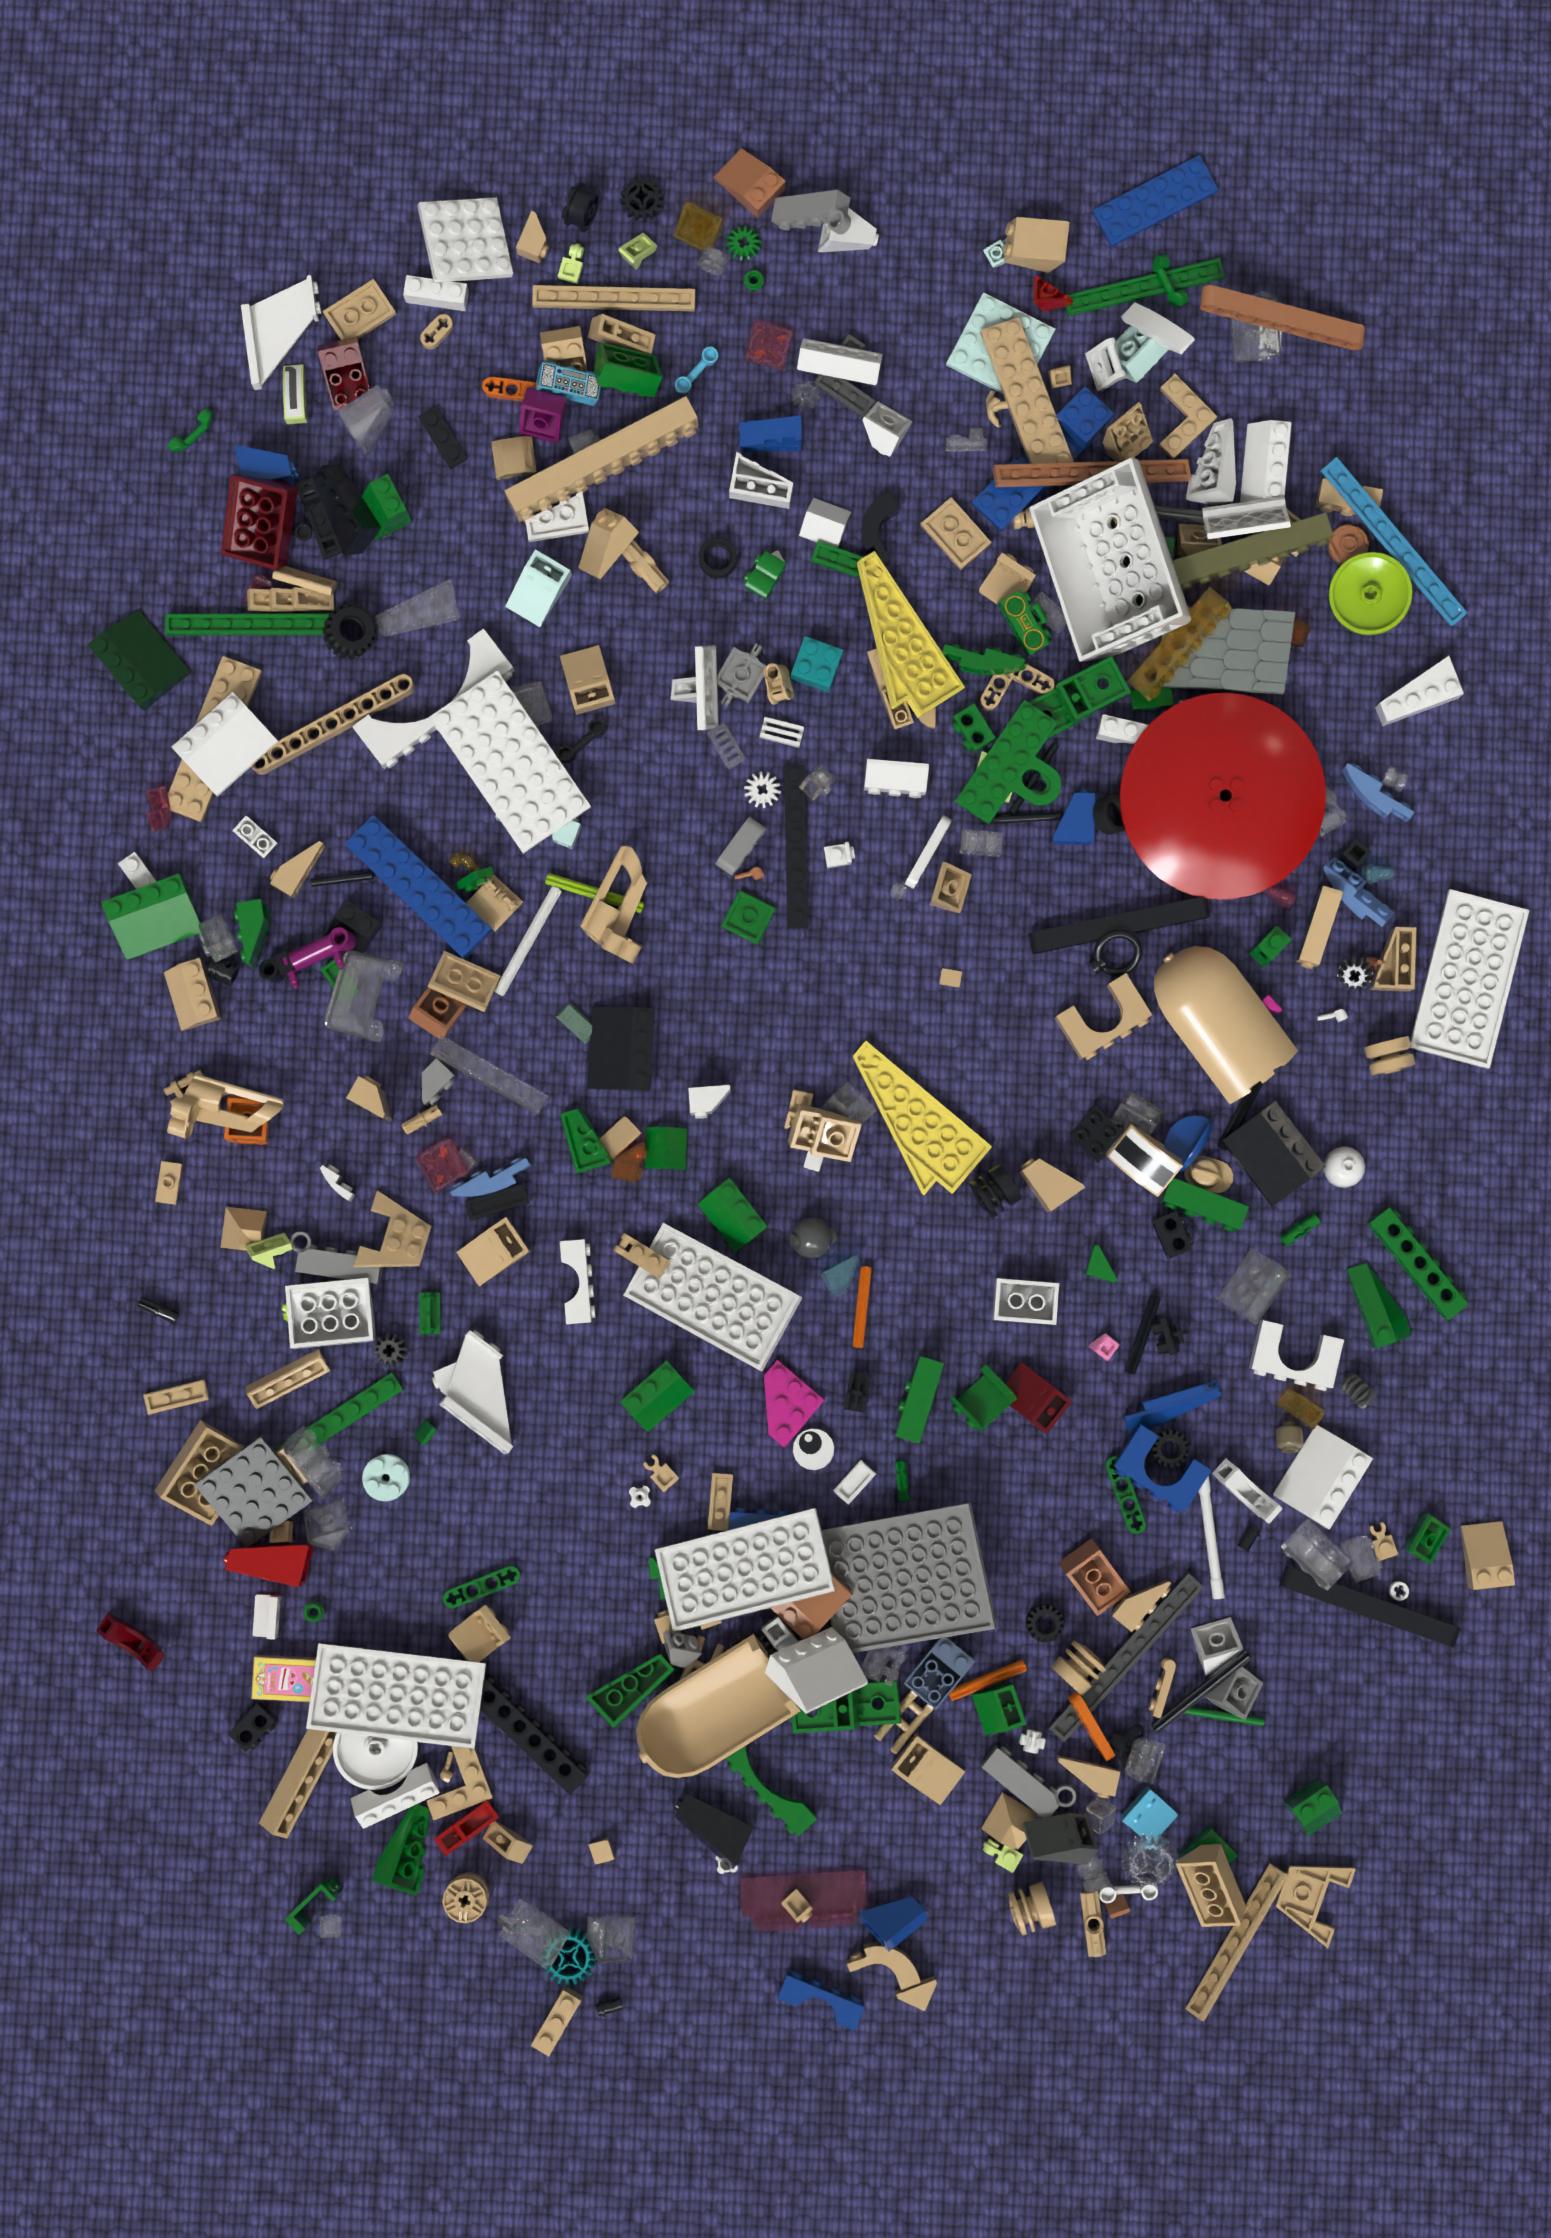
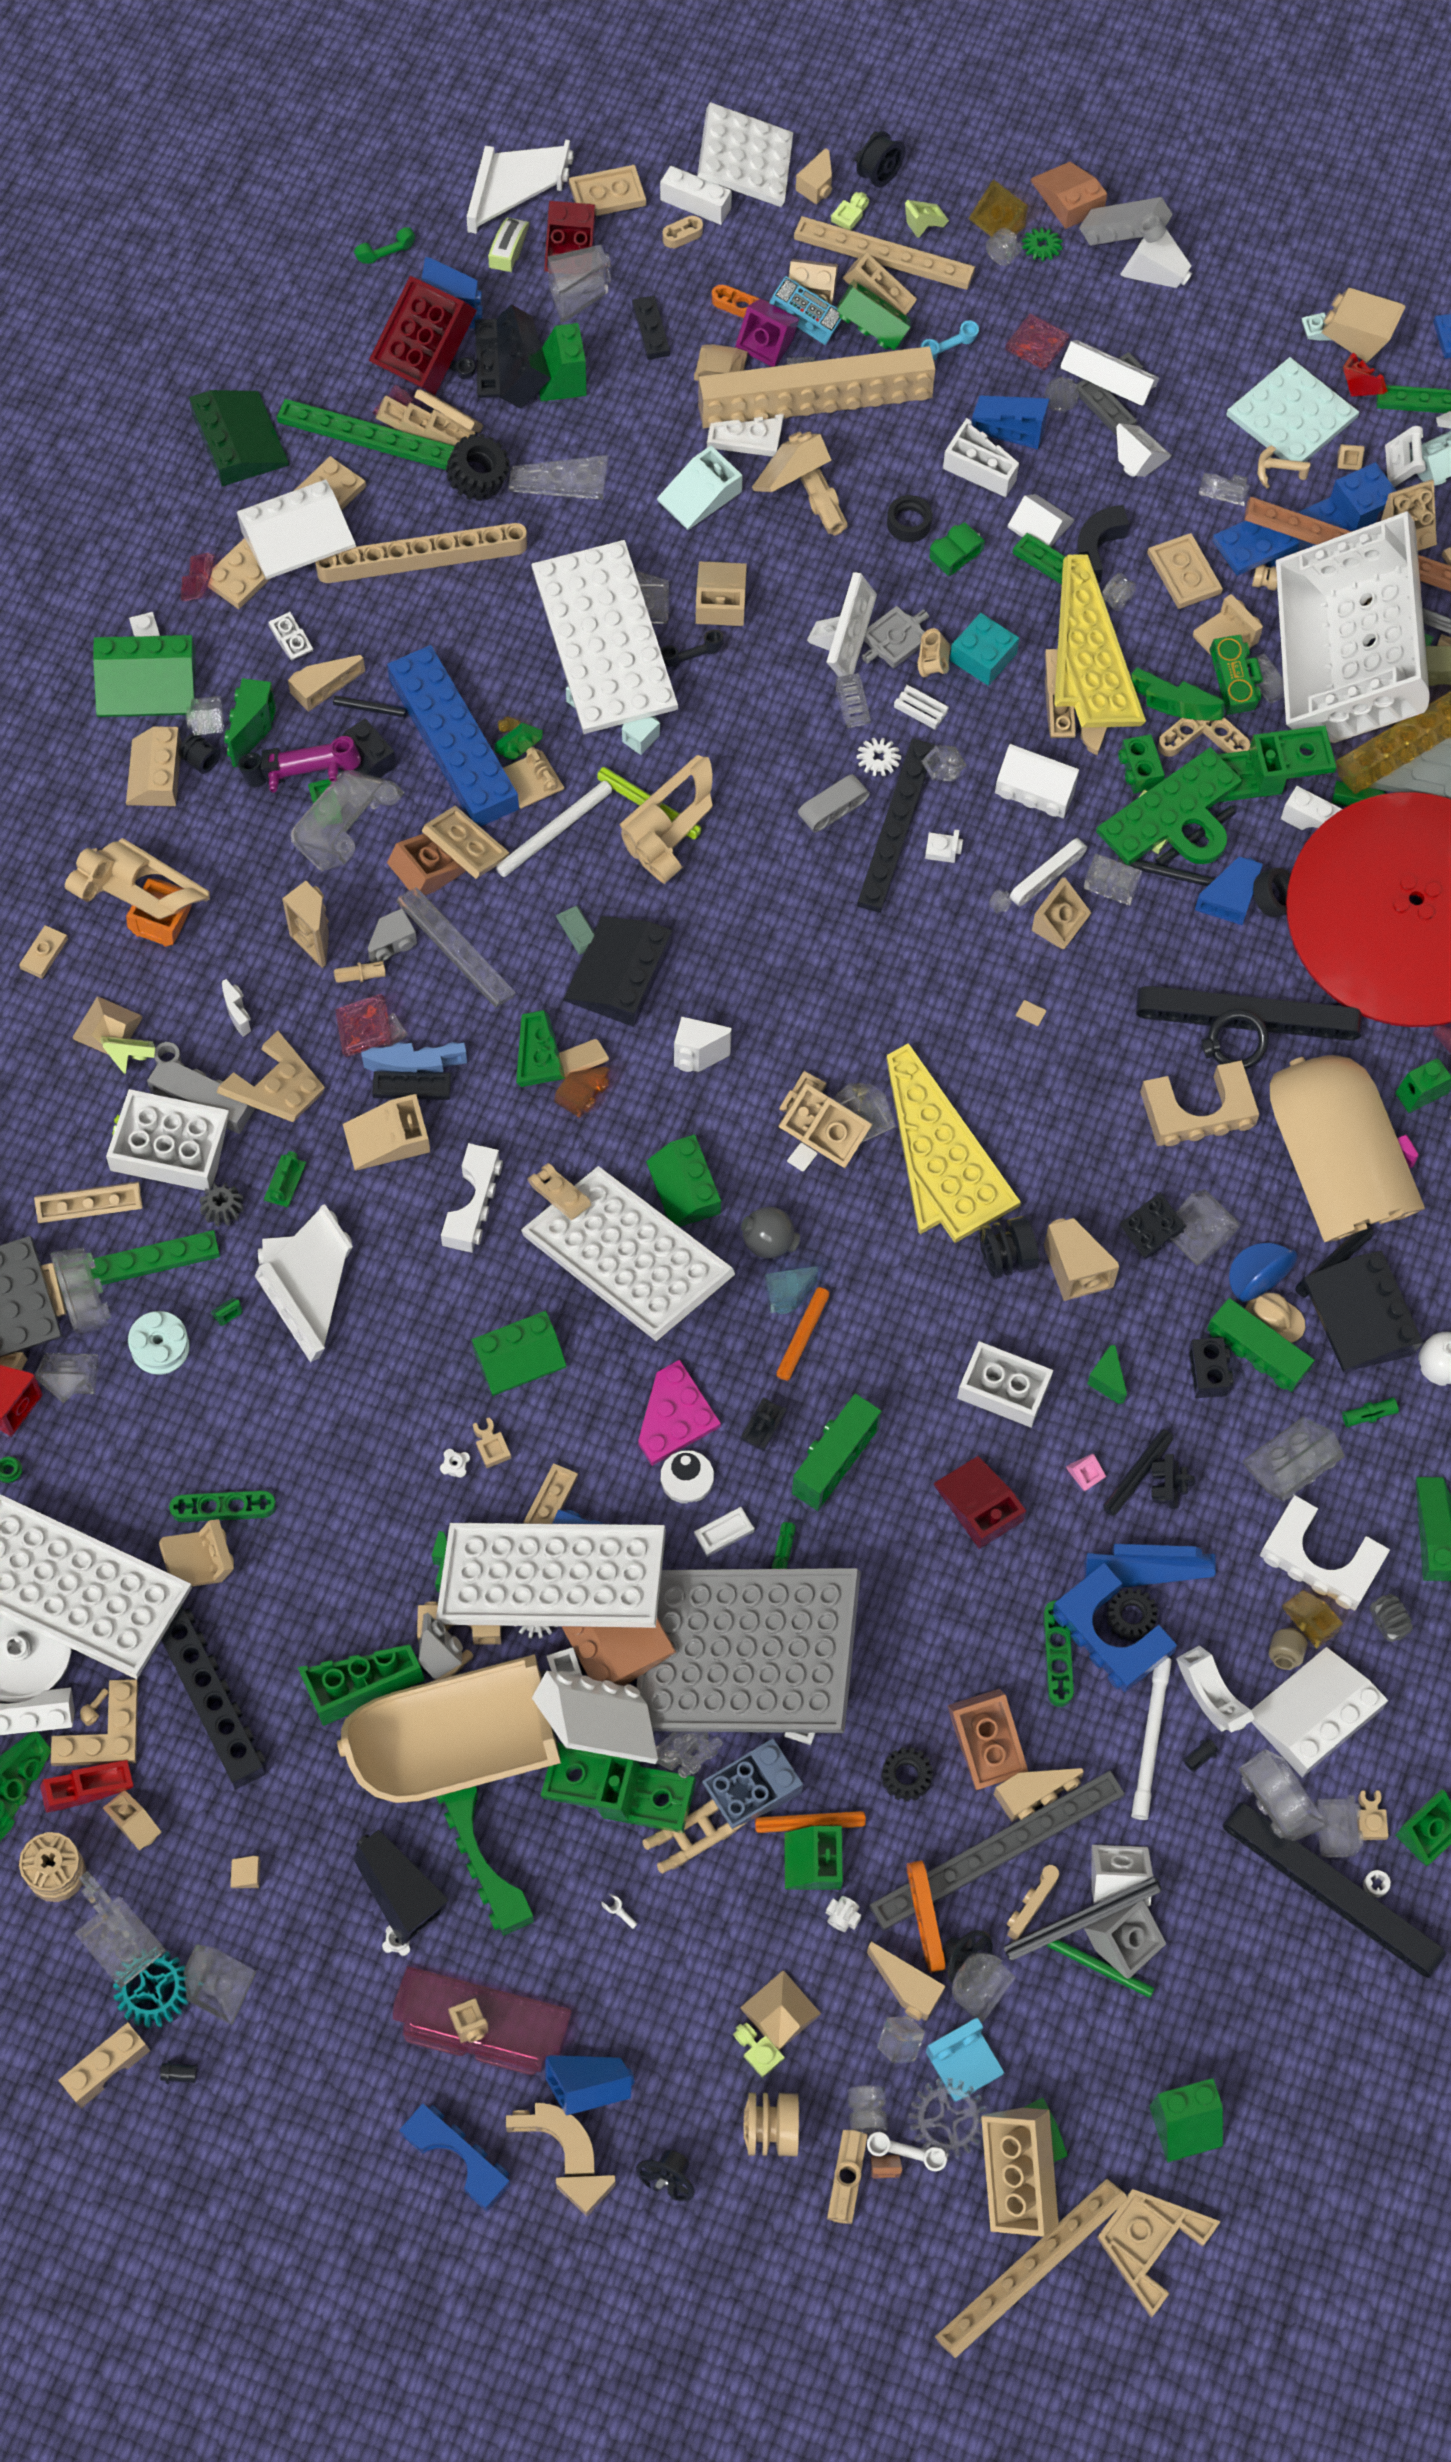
camera: 20 degrees right, 20 degrees down
(392, 740) = (486, 587): white arch -> none
(633, 199) = (936, 174): black gear -> none
(666, 1148) = (632, 1088): green slope -> none
(748, 917) = (816, 880): green tile -> none
(753, 274) = (1041, 278): green plate -> none
(756, 872) = (840, 835): nougat hand -> none
(870, 1789) = (617, 1908): none -> white hand
(908, 574) = (1118, 591): none -> clear wheel
(927, 1769) = (696, 1904): tan slope -> none
(971, 1961) = (668, 2172): none -> black wheel
(984, 1400) = (919, 1482): green panel -> none
(1023, 1784) = (814, 1966): light grey hinge -> none
(1025, 393) = (1306, 451): tan plate -> none
(1061, 1838) = (842, 2042): dark grey slope -> none
(1078, 1667) = (936, 1834): tan wheel -> none
(1145, 1160) = (1201, 1268): slope -> none

